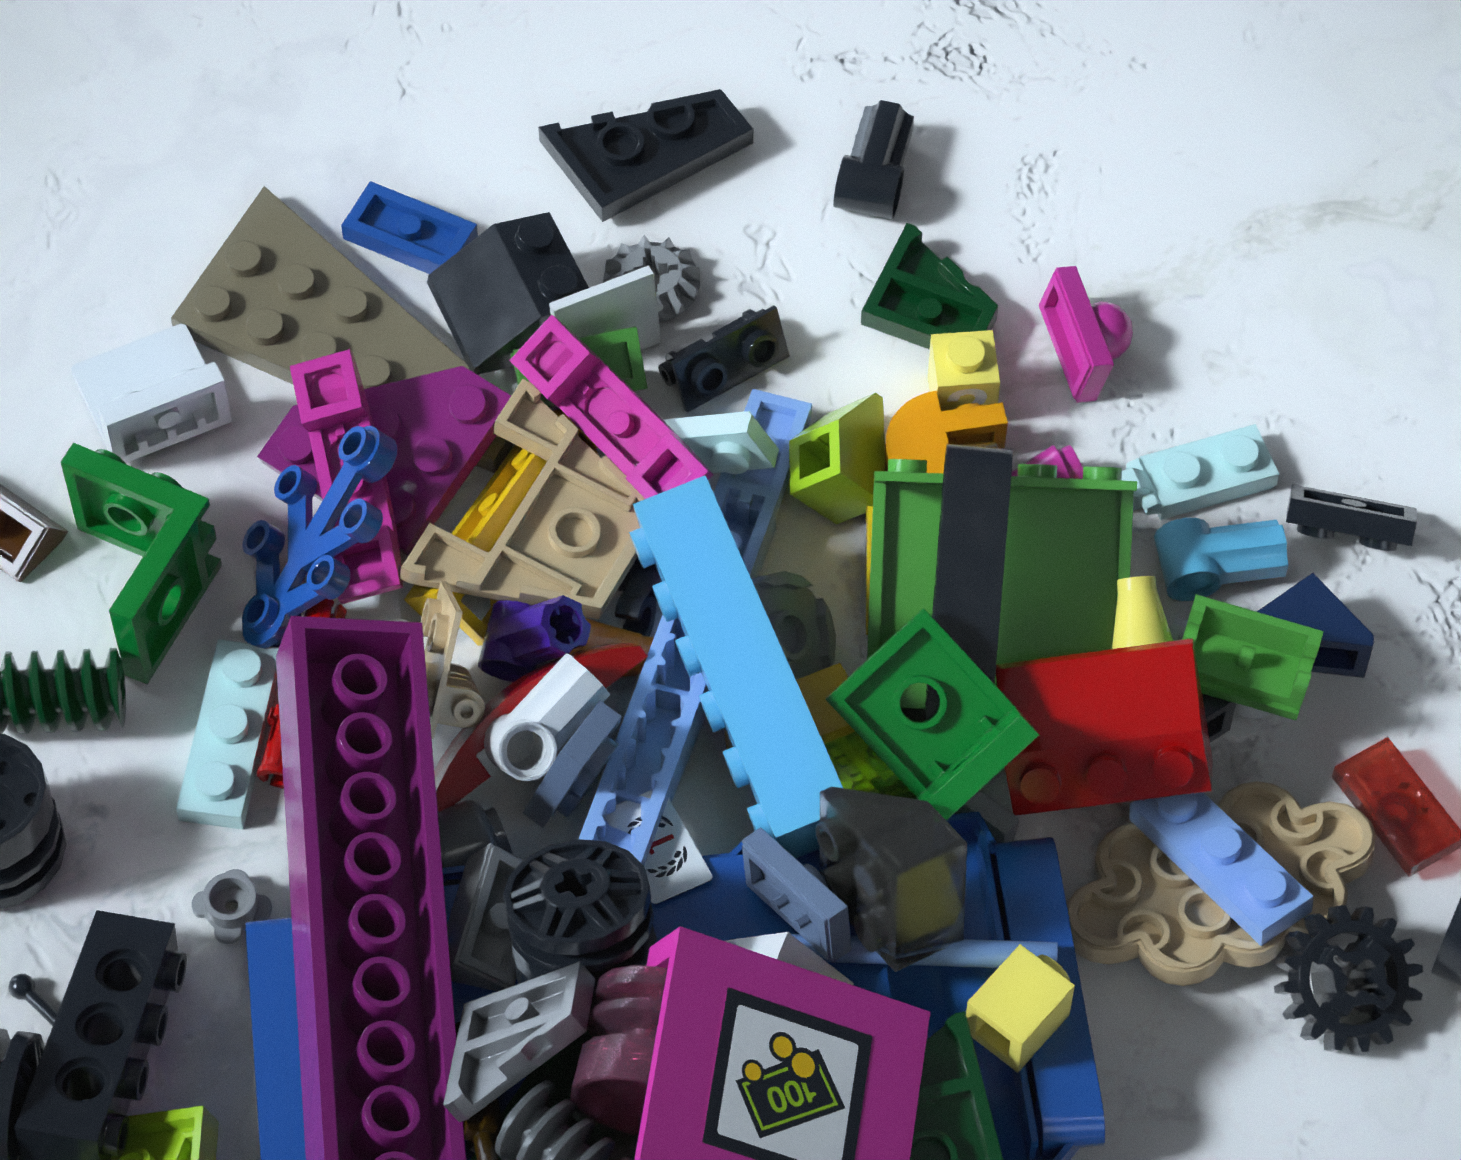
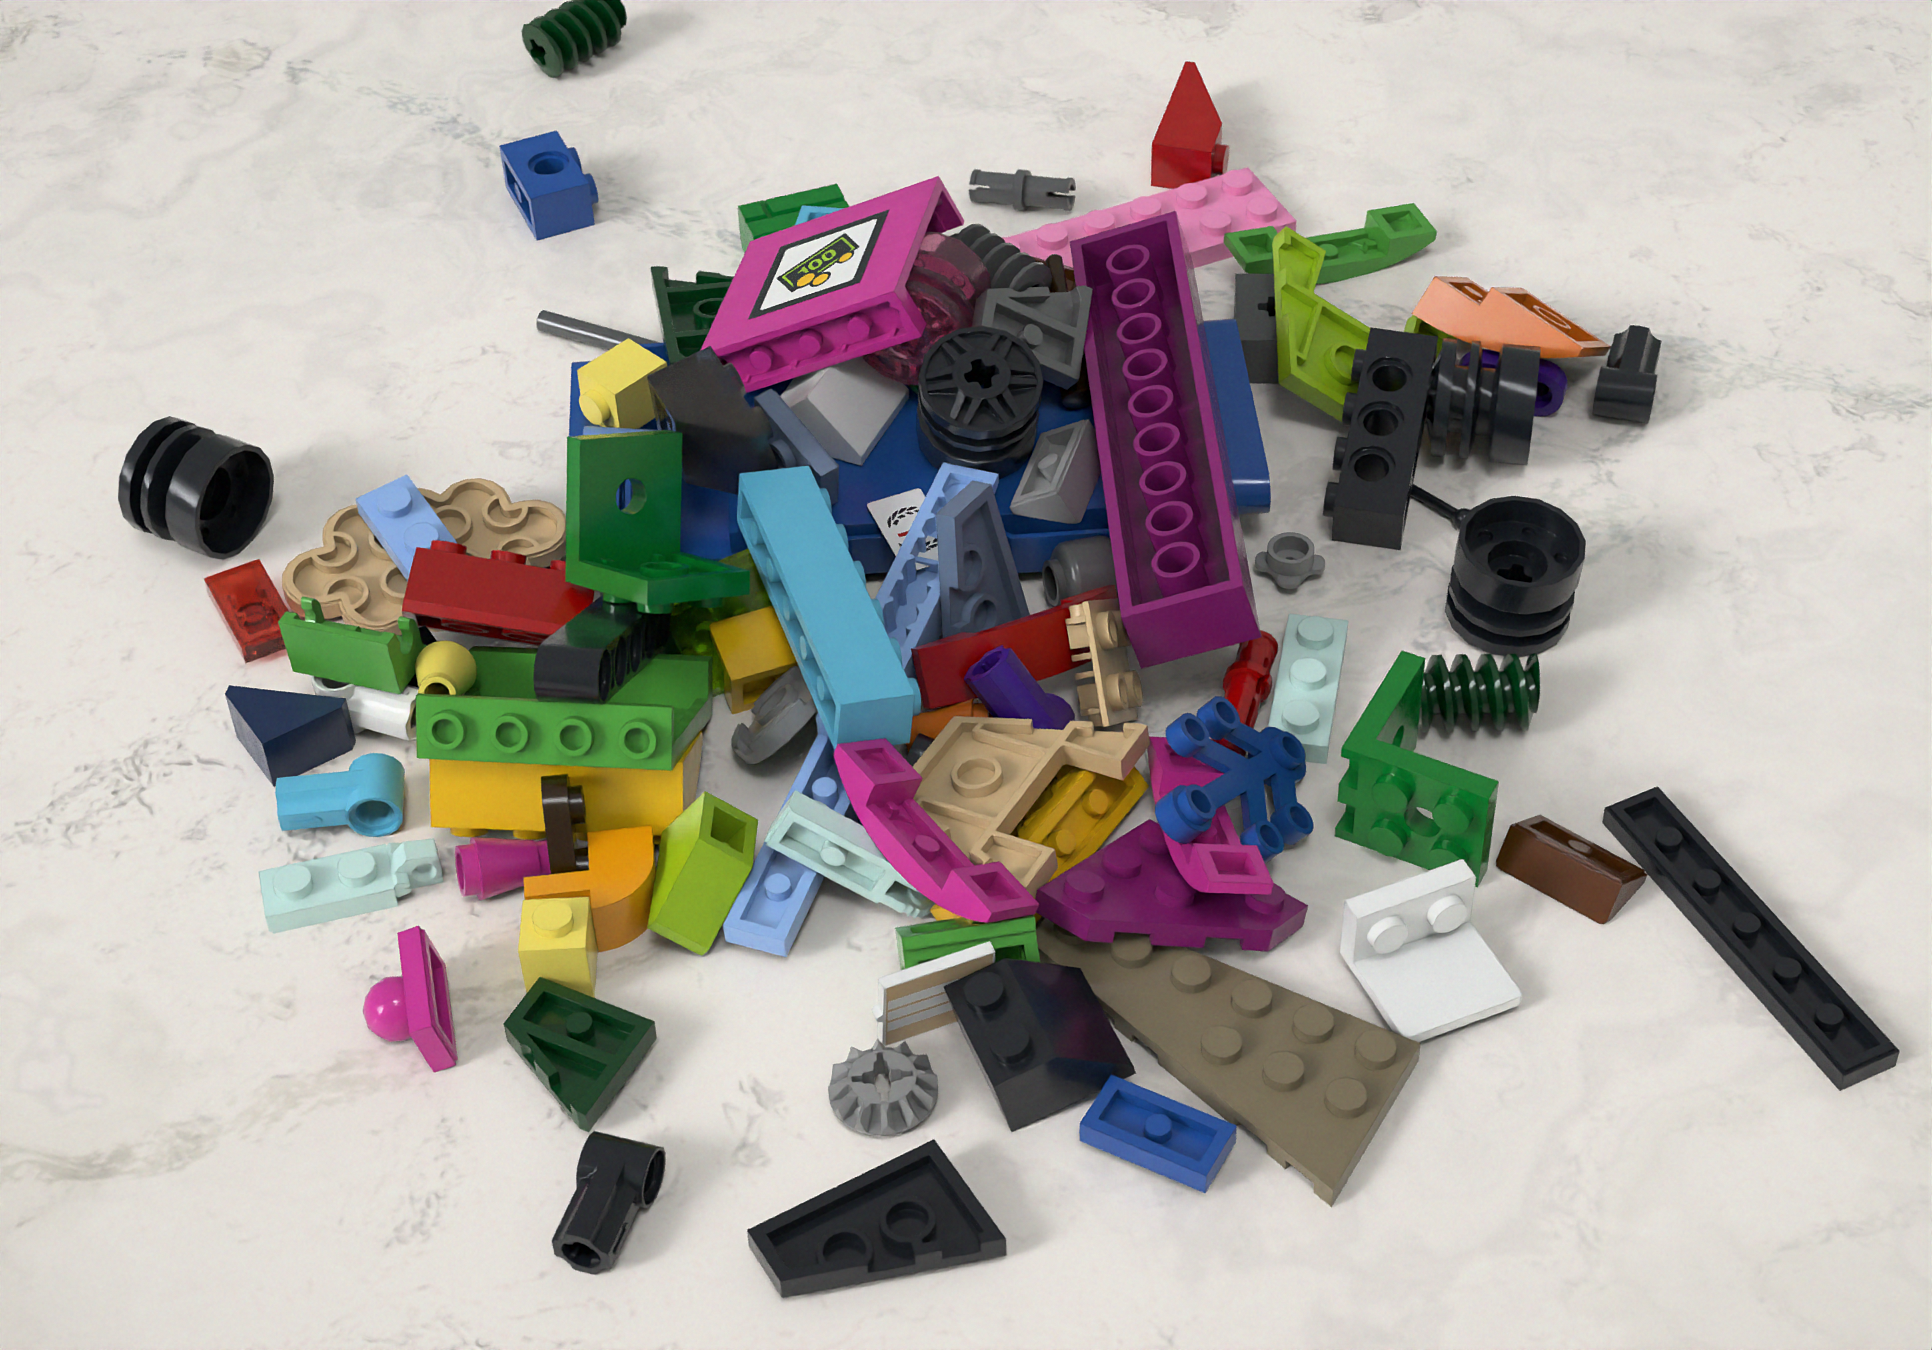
camera: 175 degrees left, 15 degrees down
(550, 713) = (1016, 587): white piece -> none
(728, 359) = (786, 1003): black hinge -> none
(1326, 512) = (201, 827): black plate -> none
(1368, 958) = (339, 477): black gear -> none

